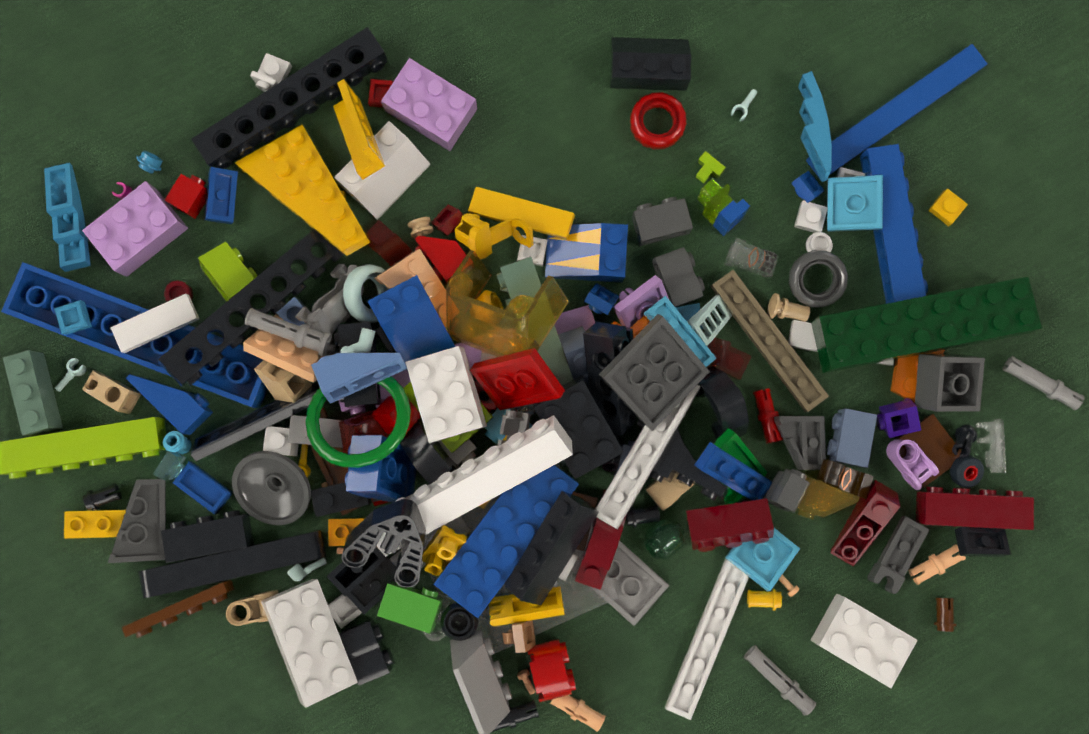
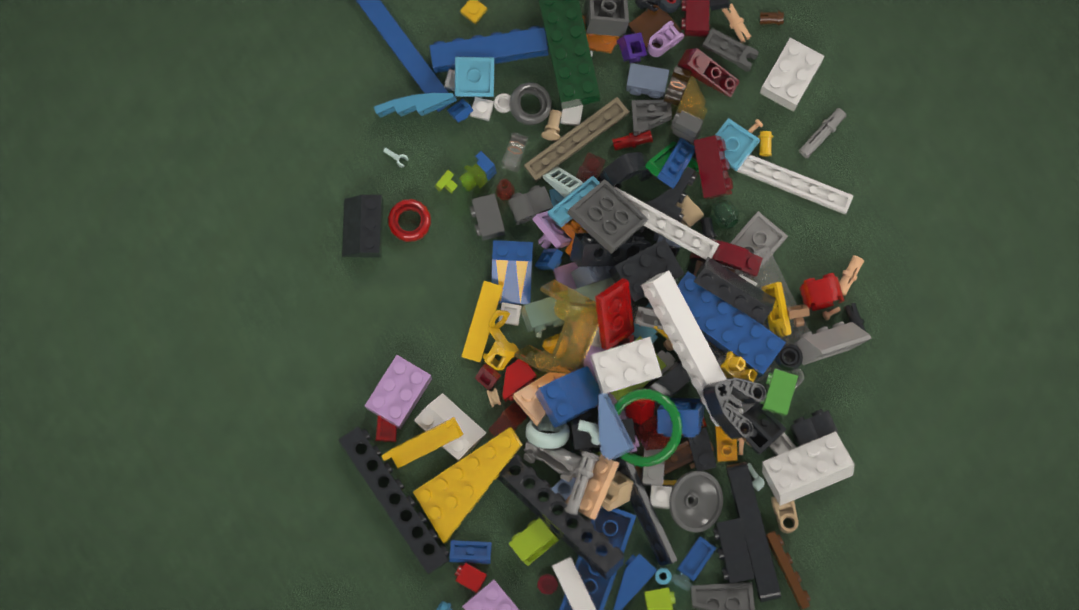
camera: 85 degrees left, 5 degrees down
(271, 72) = (371, 517): white bracket -> none
(696, 248) = (505, 193): none -> clear red cone

